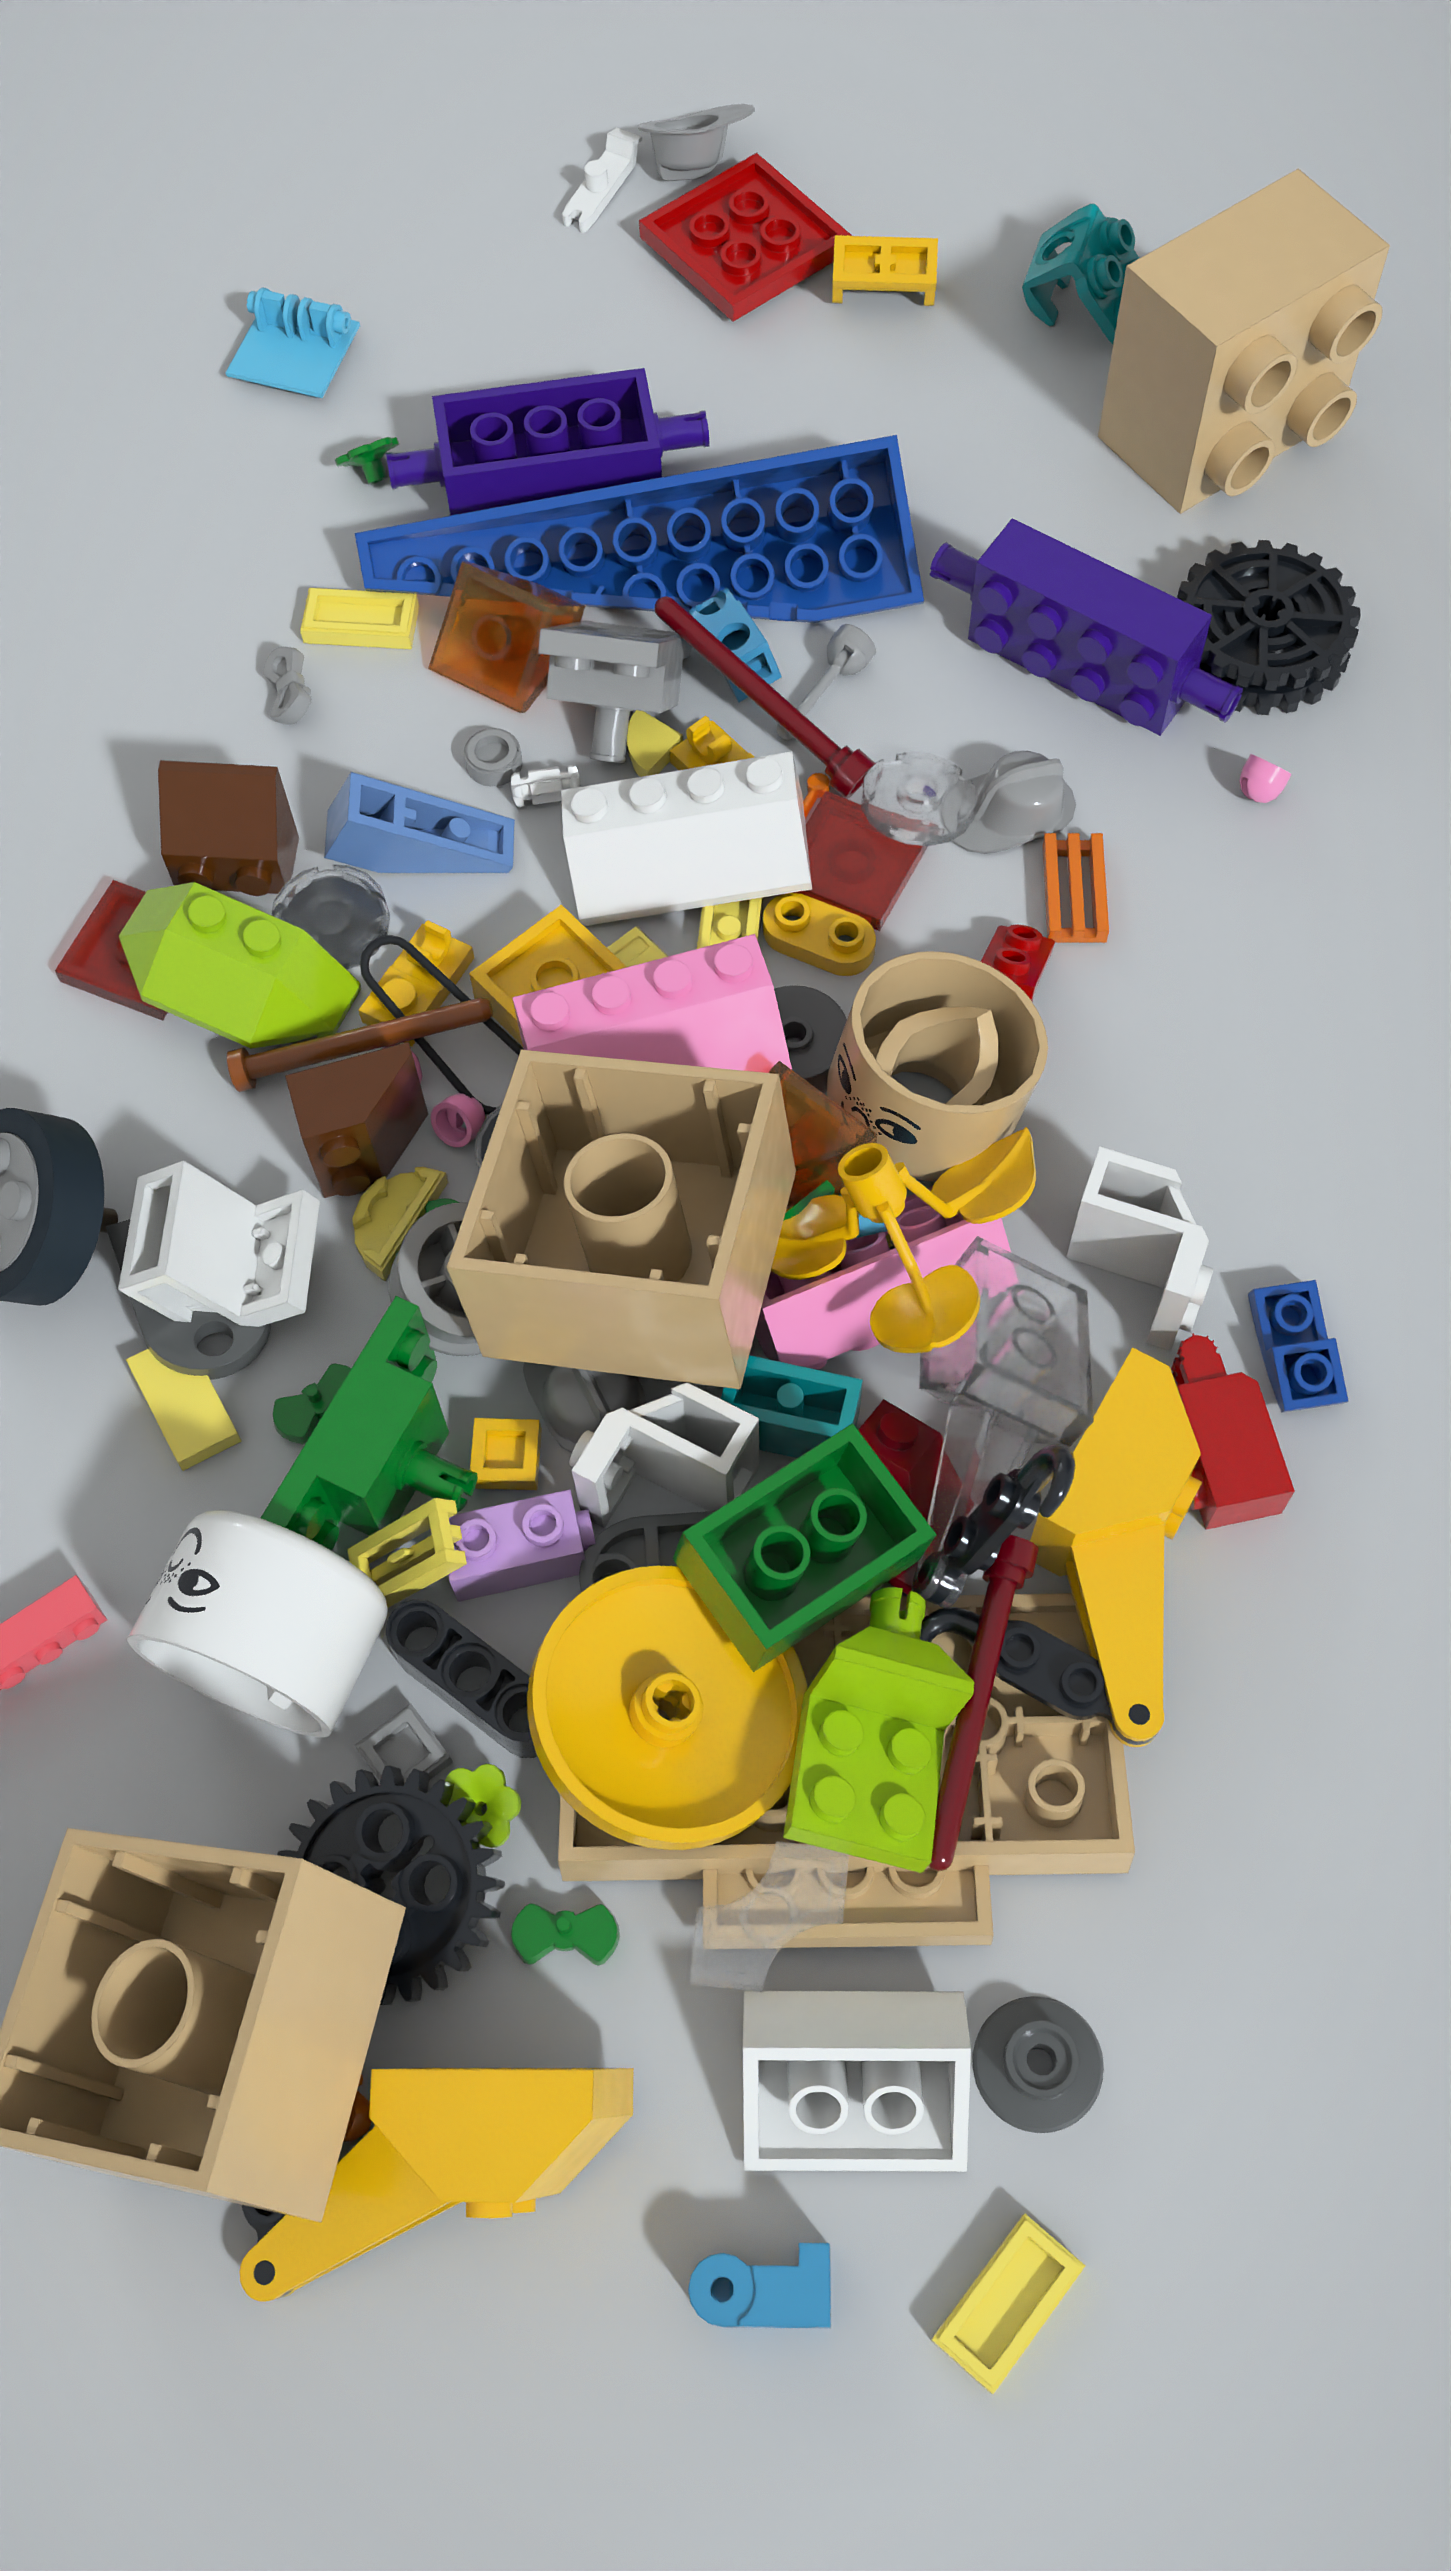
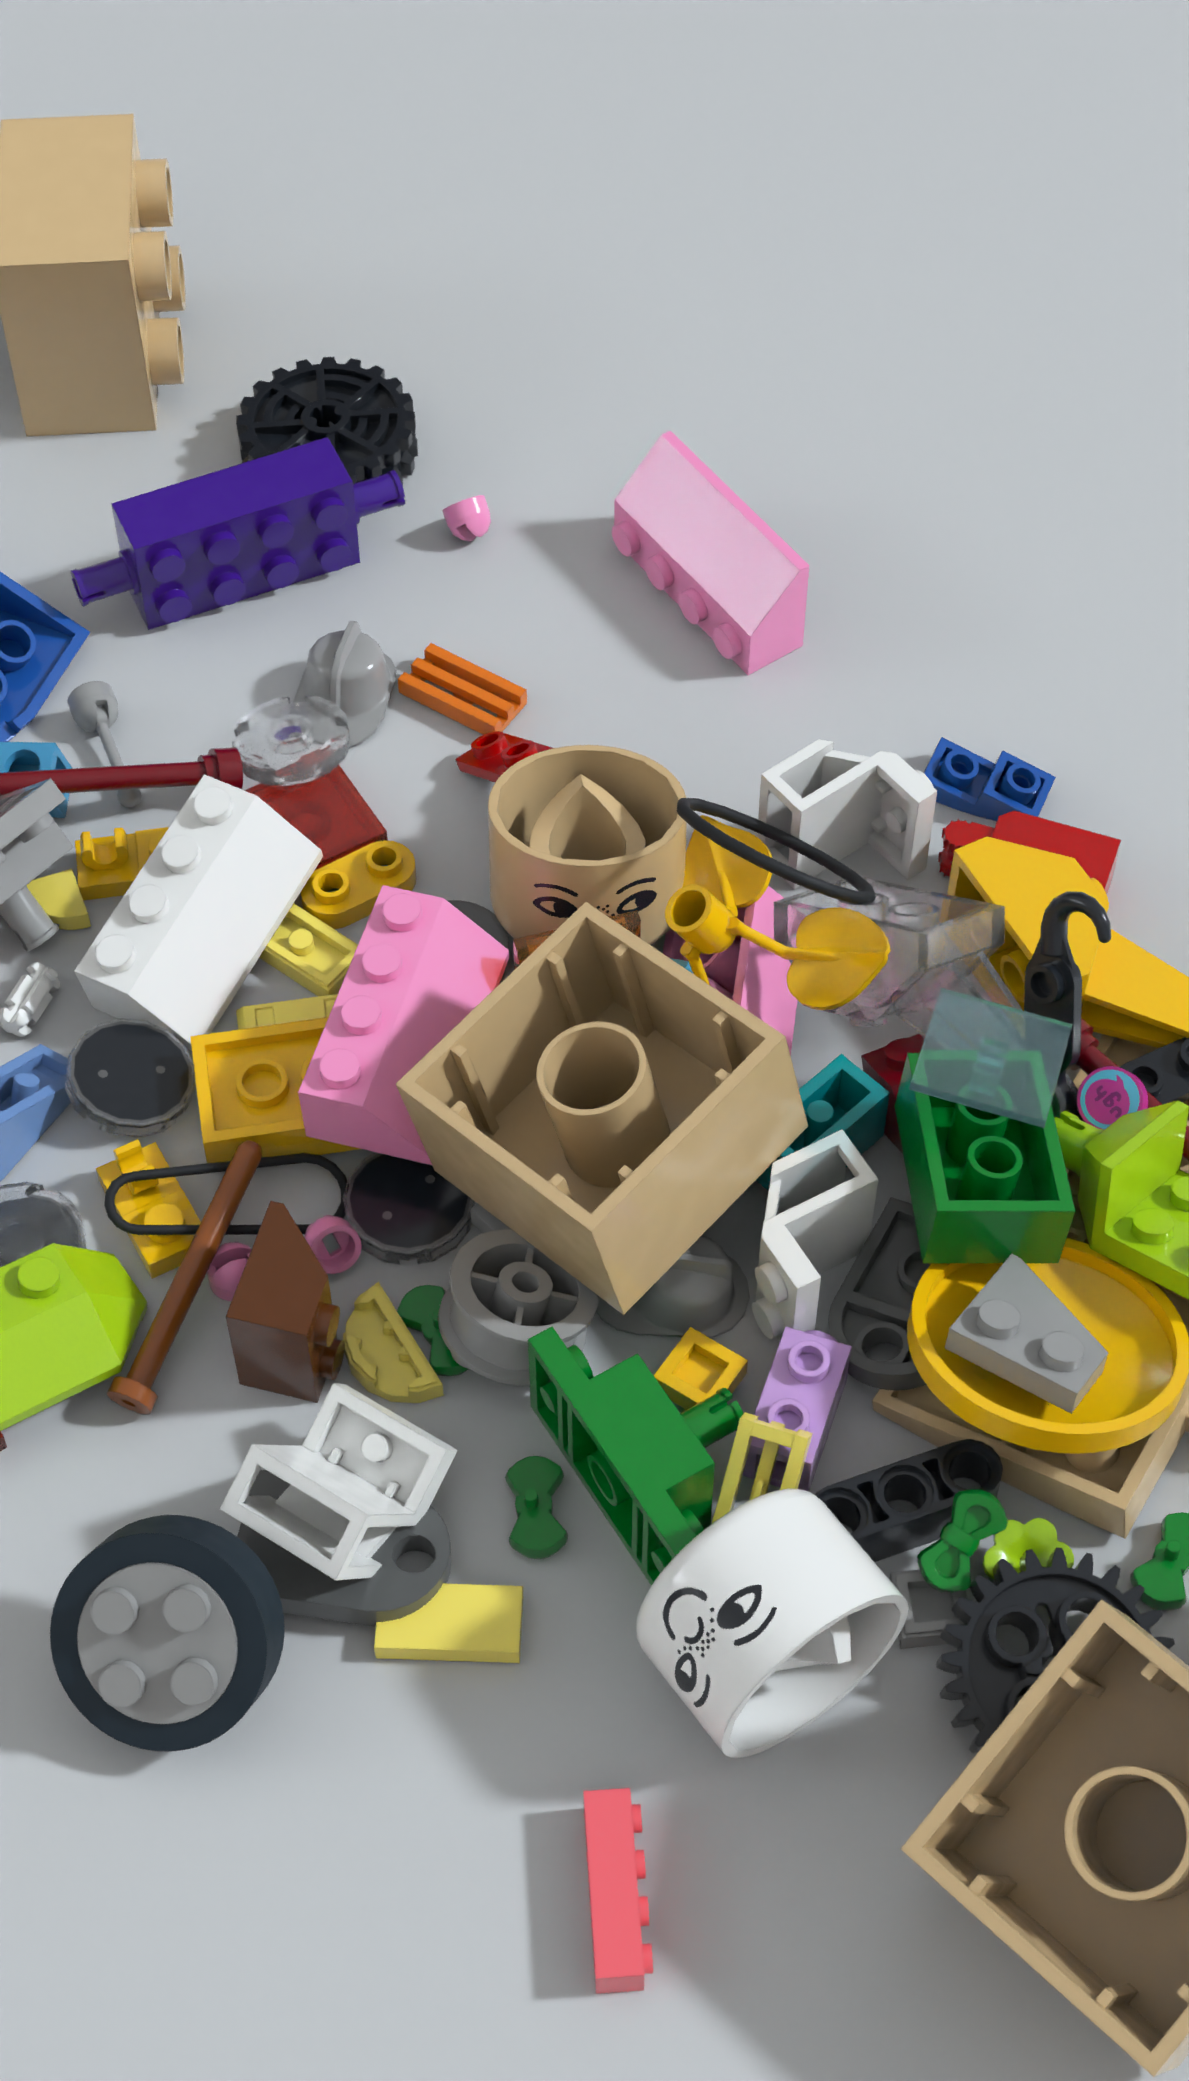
camera: 60 degrees left, 10 degrees down
(472, 1738) = (974, 1517): none -> green piece
(510, 887) = (130, 1077): none -> black tile
(638, 1681) = (1028, 1337): none -> light grey wing
(872, 1490) = (991, 1057): none -> clear light blue piece
(945, 1216) = (865, 891): none -> black piece
(962, 1628) = (1109, 1095): none -> tile
(1356, 980) = (712, 556): none -> bright pink slope

